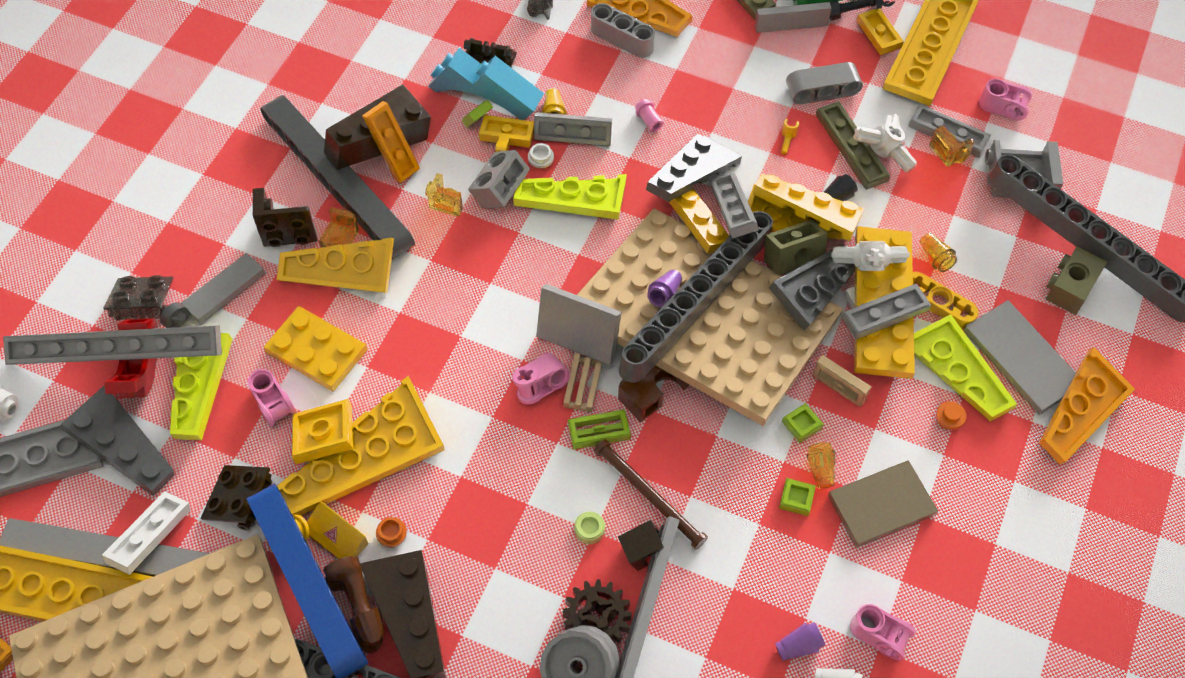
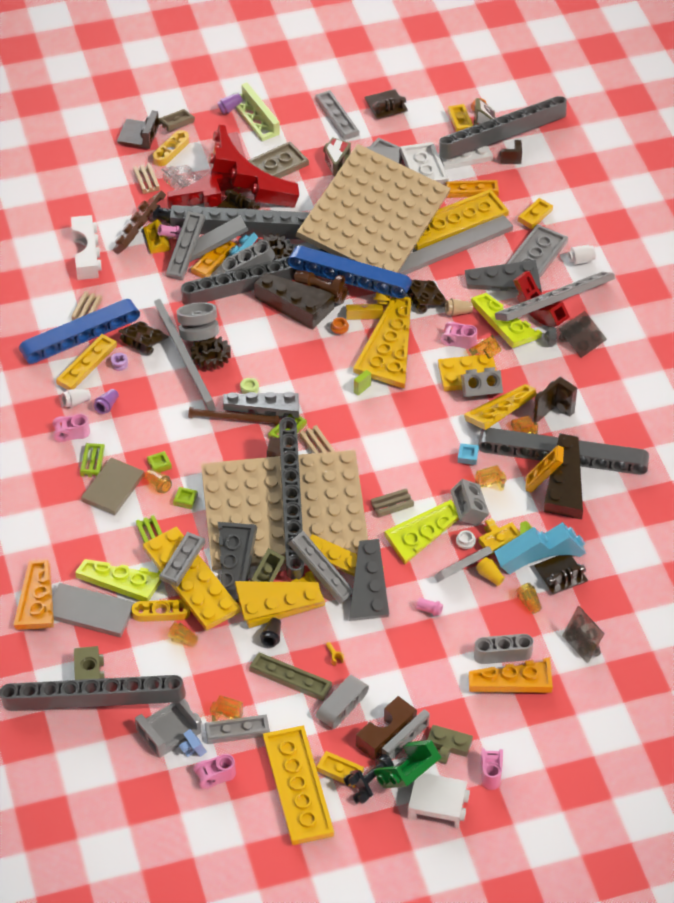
camera: 140 degrees right, 10 degrees down
(146, 533) = (444, 253): white plate -> none
(223, 288) = (547, 364): light grey tile -> none
(226, 443) = (457, 307): none -> tan cone
(264, 352) = (488, 346): none -> clear yellow bracket
(322, 431) = (416, 336): yellow tile -> none
(326, 305) = (482, 387): none -> light grey brick
(434, 242) = (468, 454): none -> medium azure plate
(453, 418) = (362, 382): none -> lime tile
(541, 376) = (339, 423): bright pink piece -> none
(544, 60) = (529, 597): none -> clear yellow cone
(574, 246) = (391, 500): none -> dark tan tile
(578, 324) = (362, 448): light grey tile -> none
(592, 474) = (263, 402): none -> wing
(641, 543) = (217, 385): dark brown panel -> none
(664, 288) = (311, 487): medium lavender cone -> none
(822, 30) = (373, 738): none -> reddish brown arch
(841, 381) = (184, 523): tan tile -> none
(865, 582) = (91, 471): none -> lime tile
(870, 255) = (212, 574): white bush -> none
(886, 382) = (146, 522): none -> lime tile
(887, 142) = (272, 690): white bush -> none
(951, 415) = (108, 550): orange plate -> none
(1011, 134) = (192, 745): none -> light blue tile

